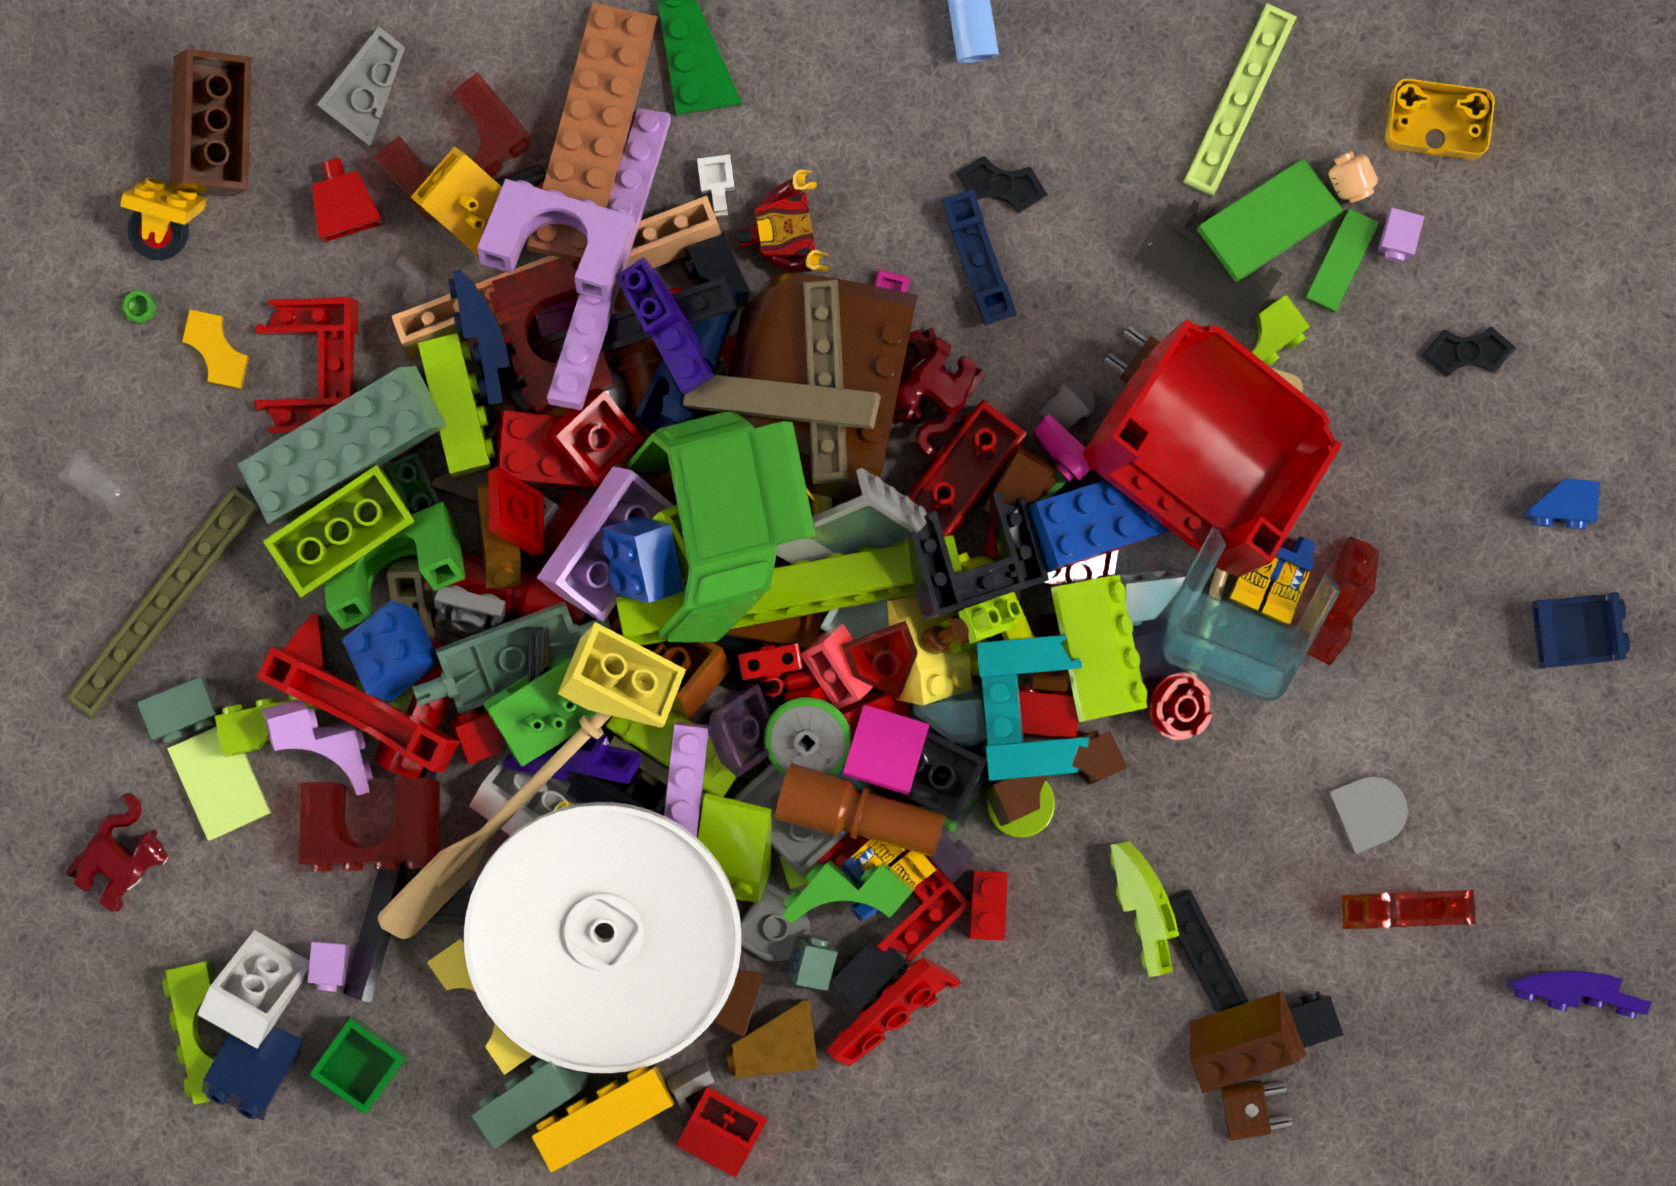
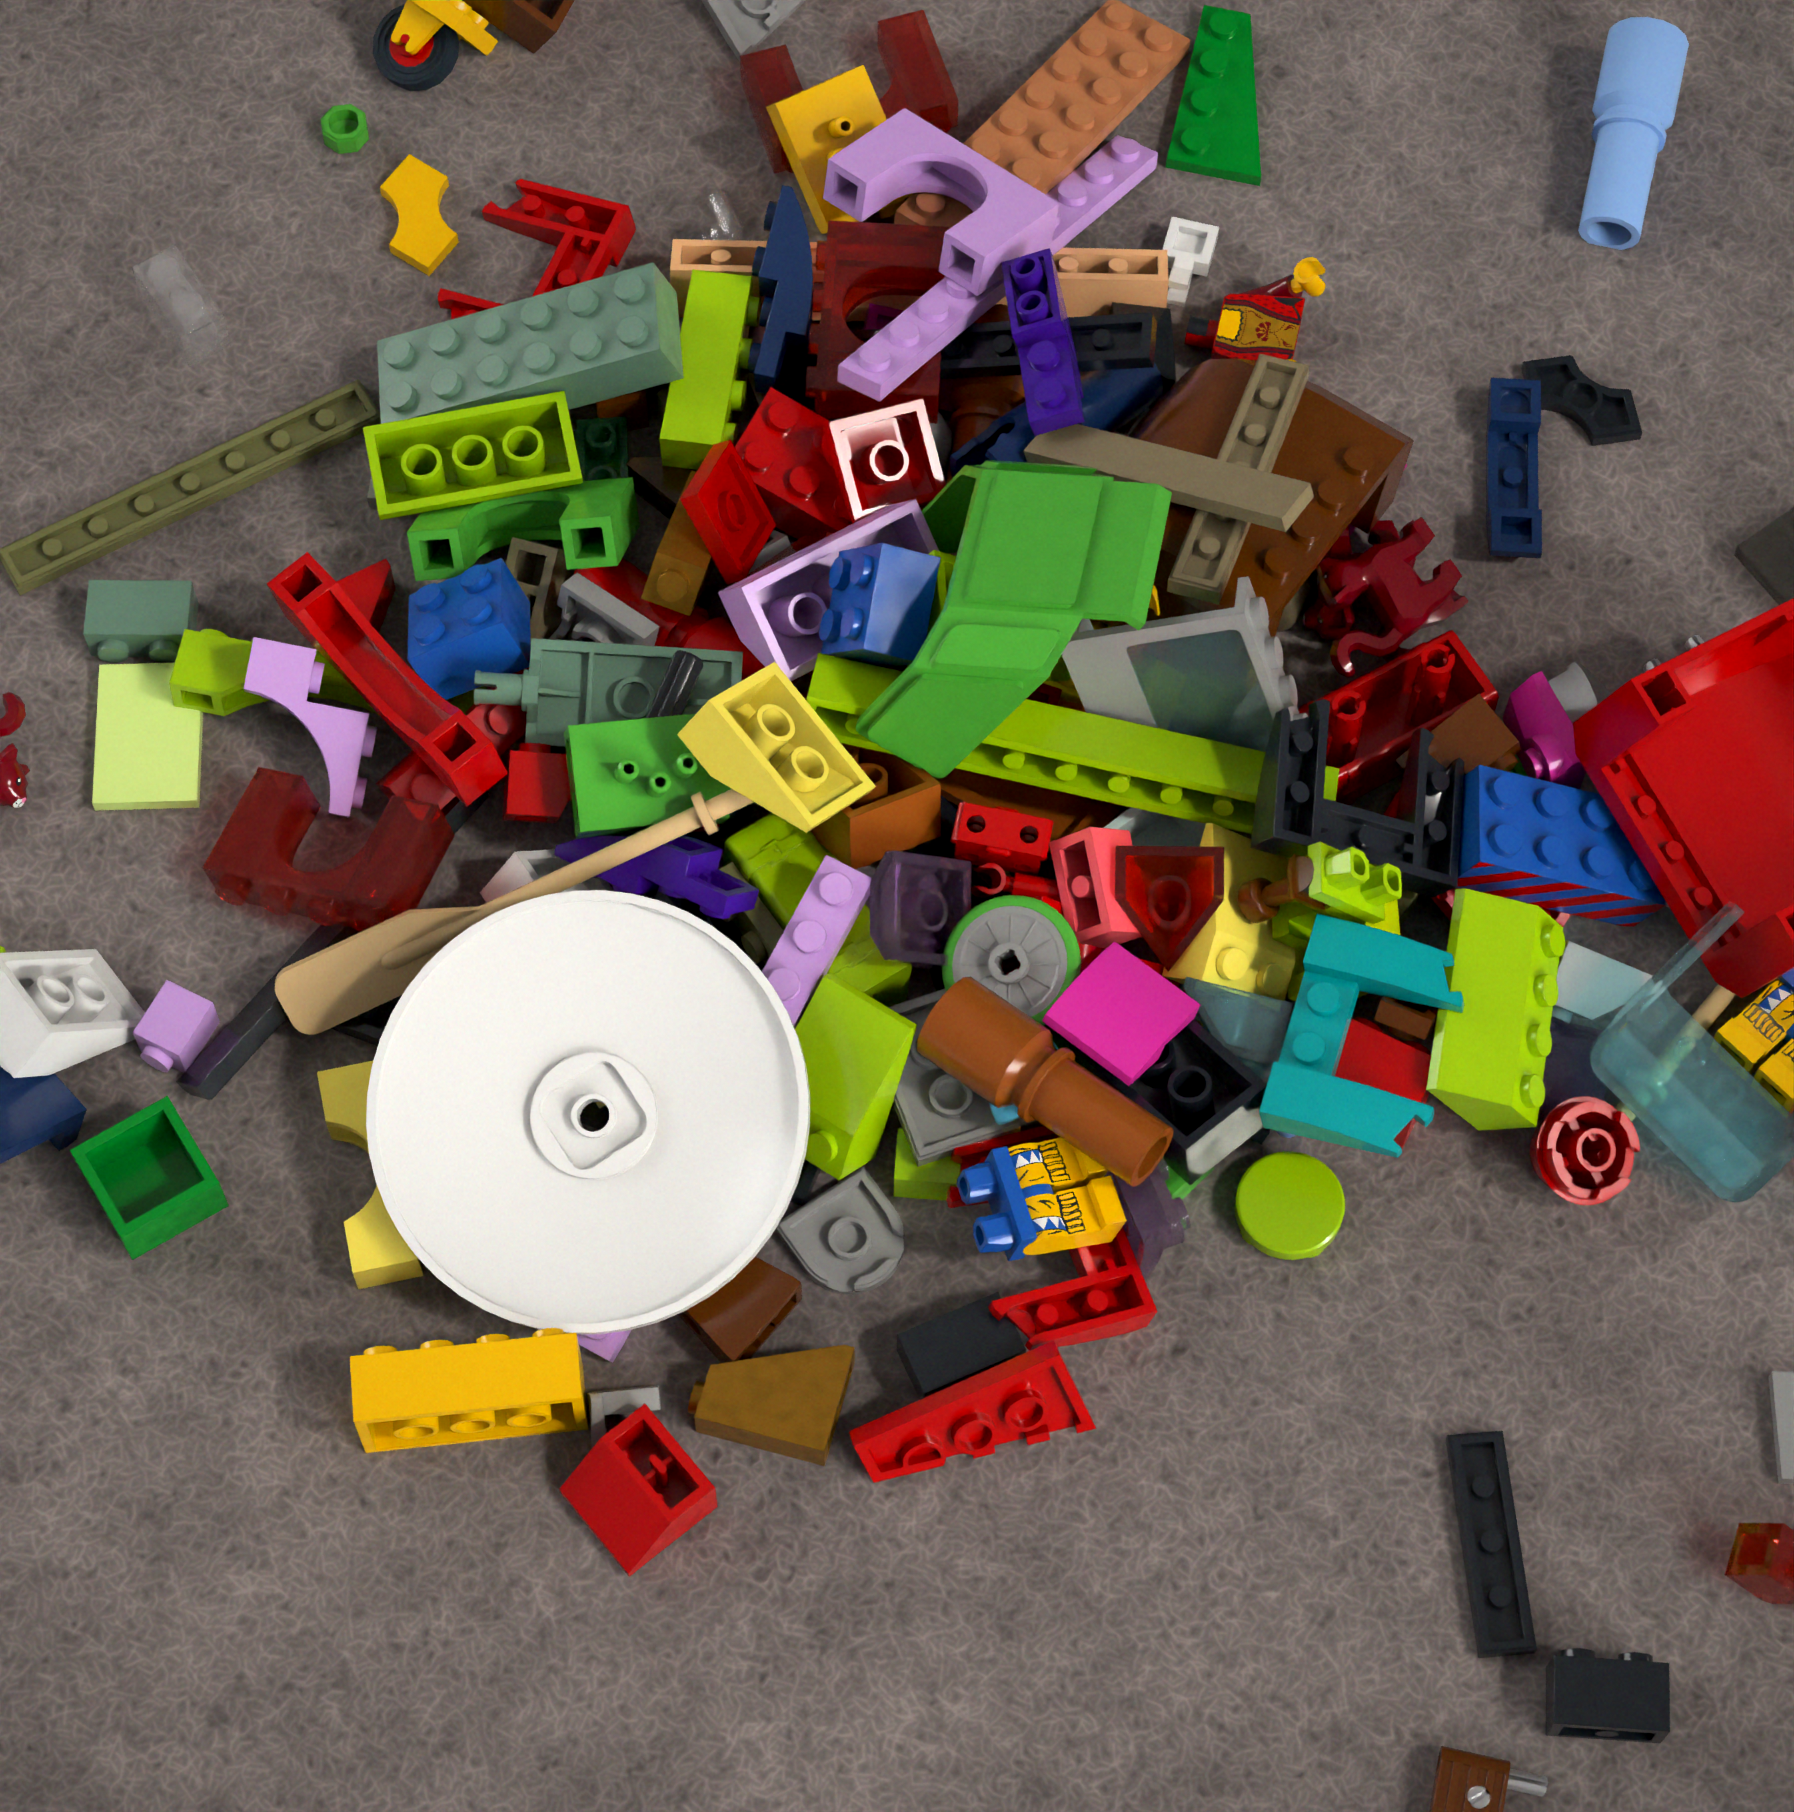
camera: 25 degrees right, 20 degrees down
(343, 203) = (671, 105): red torso -> none
(527, 1100) = (370, 1312): sand green wedge -> none
(812, 962) = (882, 1299): sand green brick -> none
(828, 883) = (956, 1164): bright green arch -> none
(988, 905) = (1182, 1325): red brick -> none
(1021, 796) = (1422, 1184): reddish brown arch -> none
(1142, 891) = (1429, 1408): lime slope -> none
(1244, 1042) = (1506, 1680): reddish brown slope -> none

